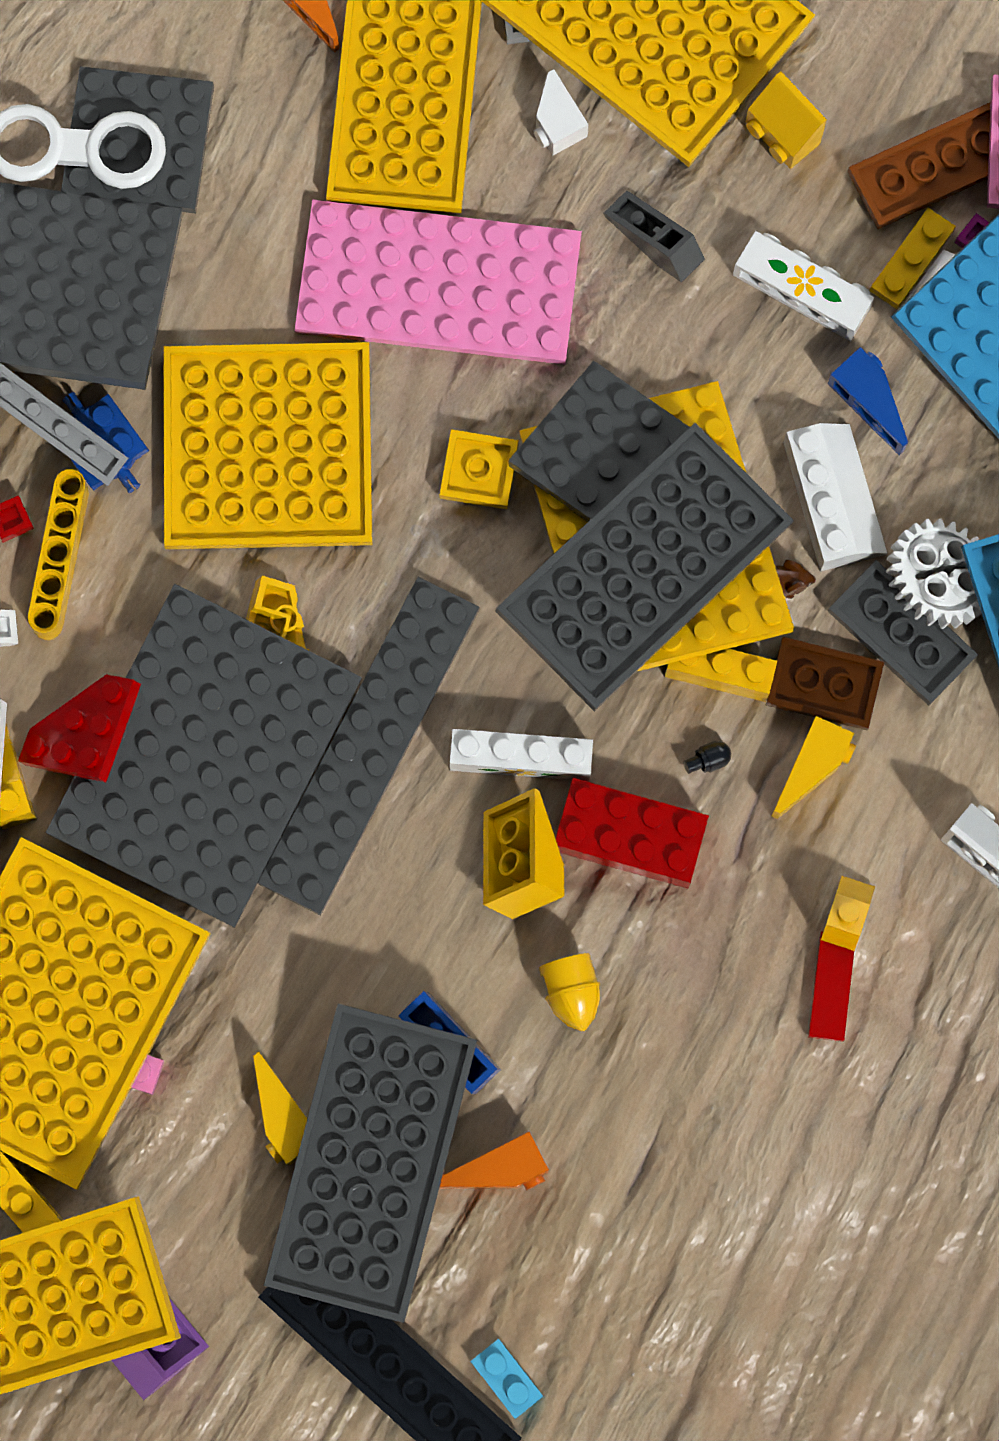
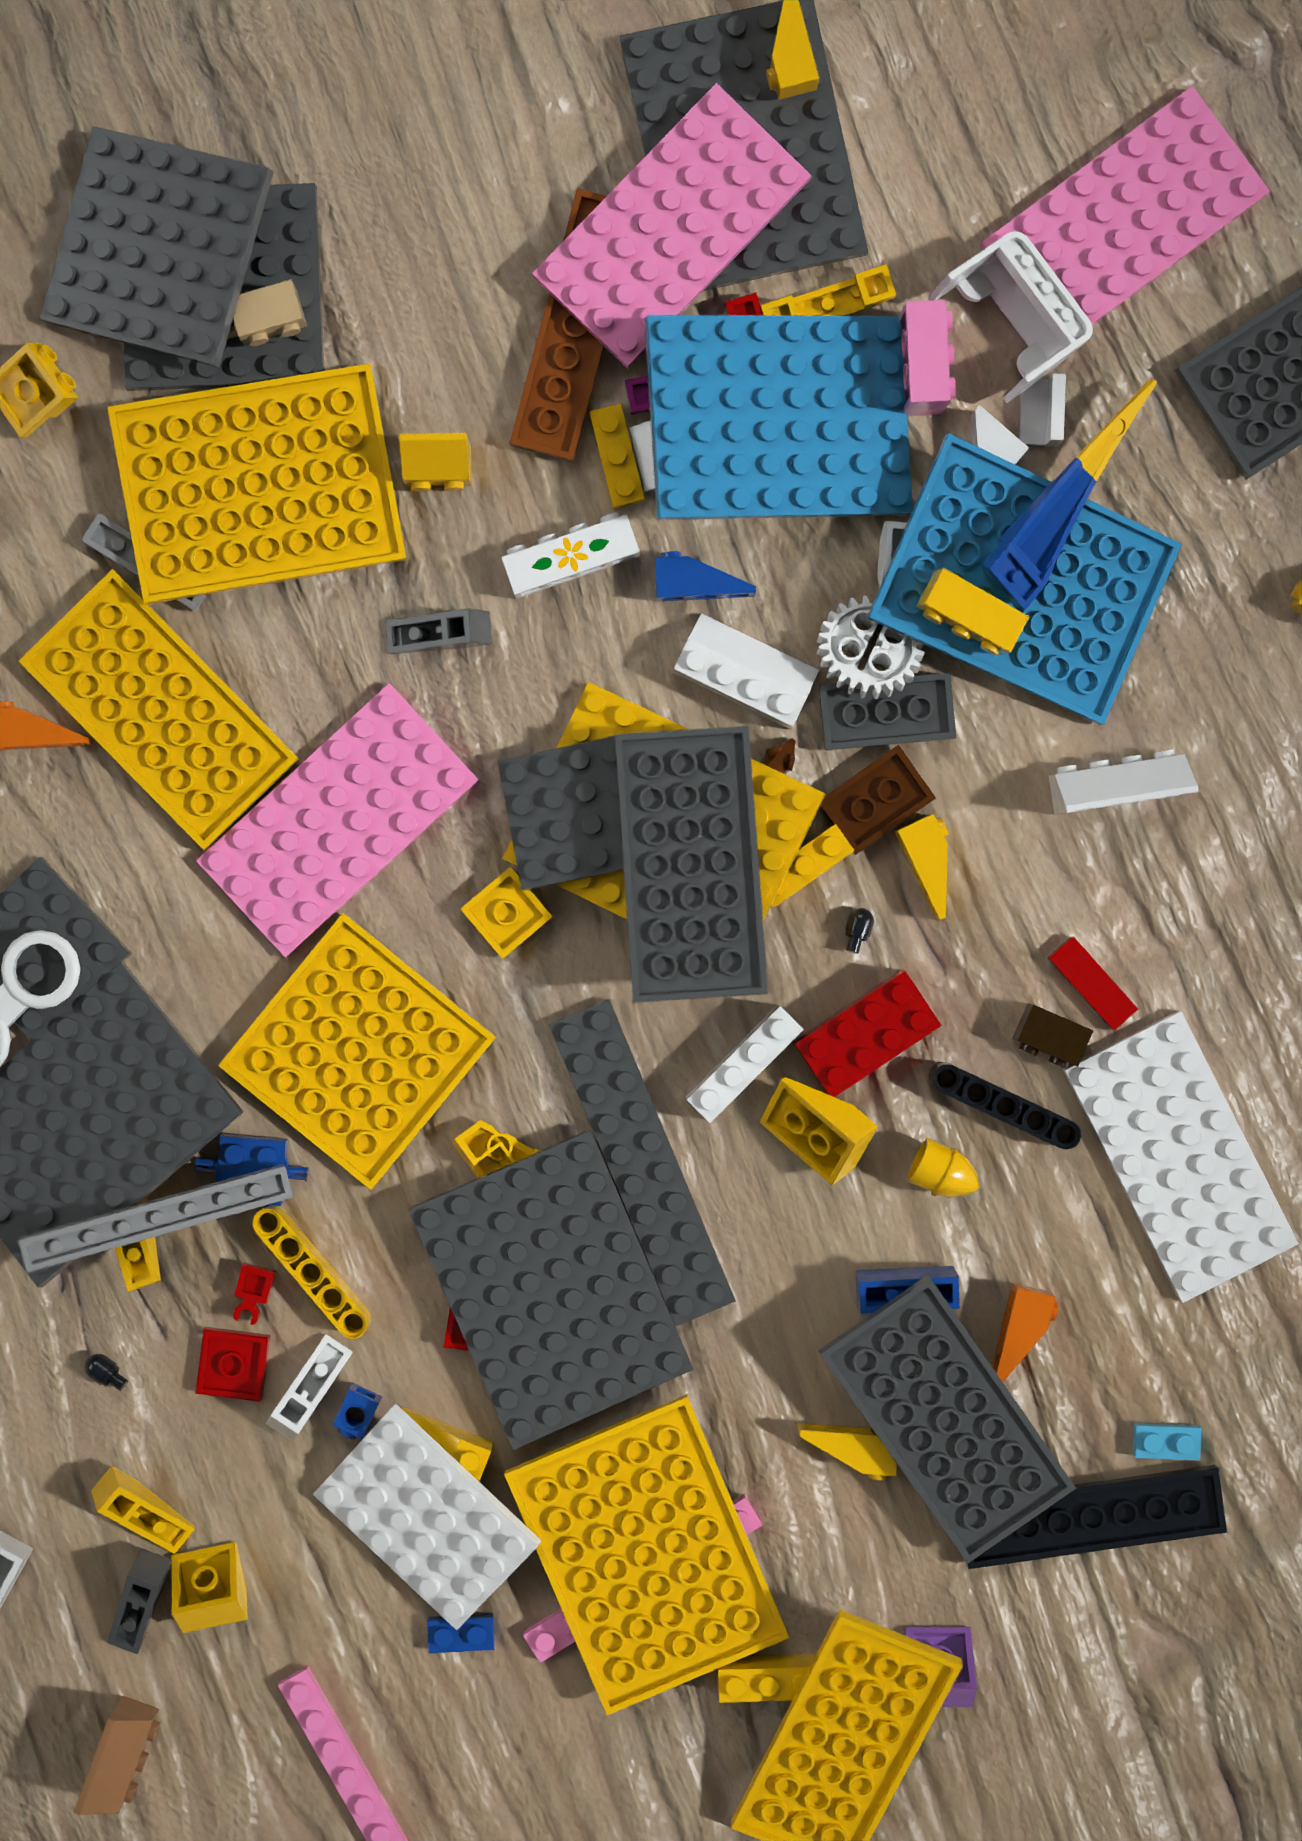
camera: 50 degrees left, 10 degrees up
(83, 732) = (462, 1364): red plate -> none
(558, 117) = (286, 624): white slope -> none
(672, 979) = (1018, 1113): none -> black beam
(753, 1184) = (1180, 1156): none -> white plate
(760, 987) = (1052, 1035): none -> dark brown brick
(848, 913) = (1053, 927): yellow slope -> none

